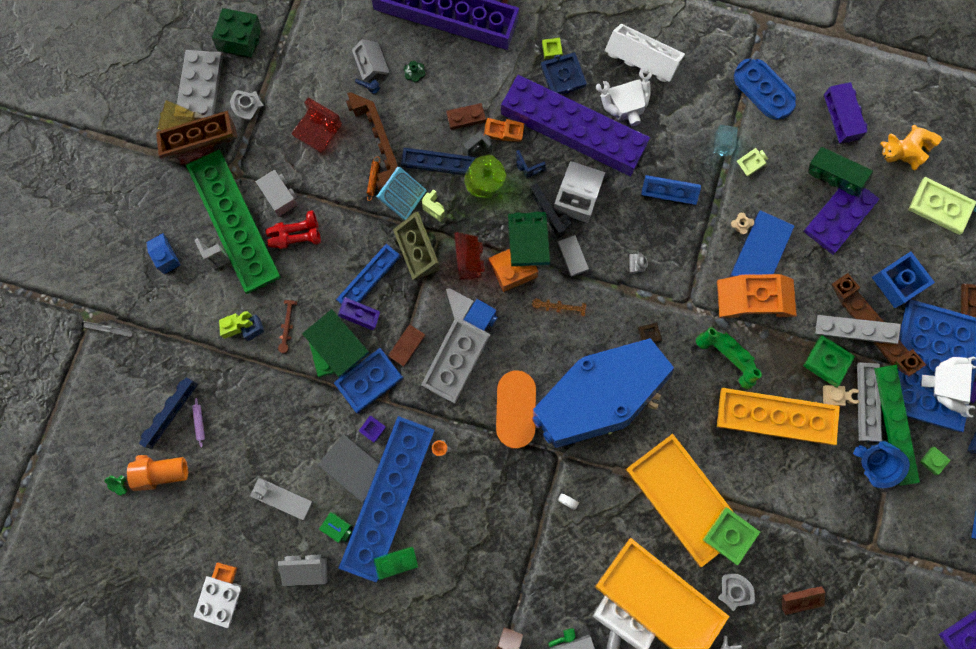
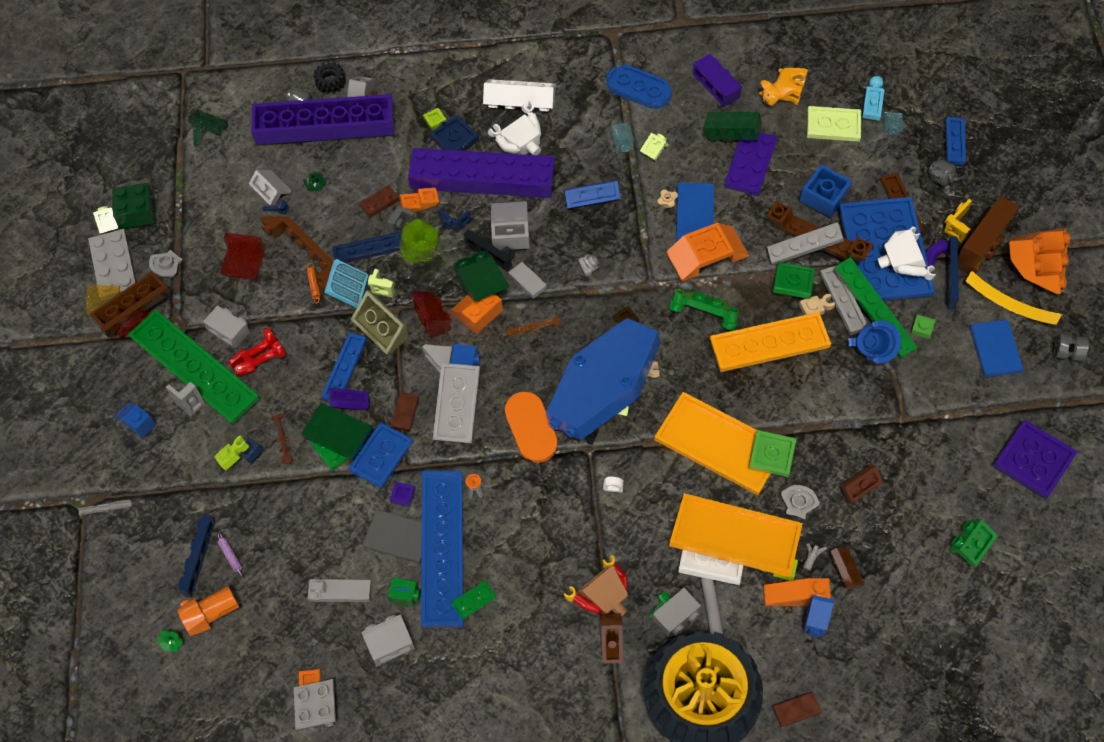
camera: 20 degrees left, 15 degrees down
(204, 36) = (105, 220): none -> bracket
(516, 606) = (603, 591): none -> medium nougat torso

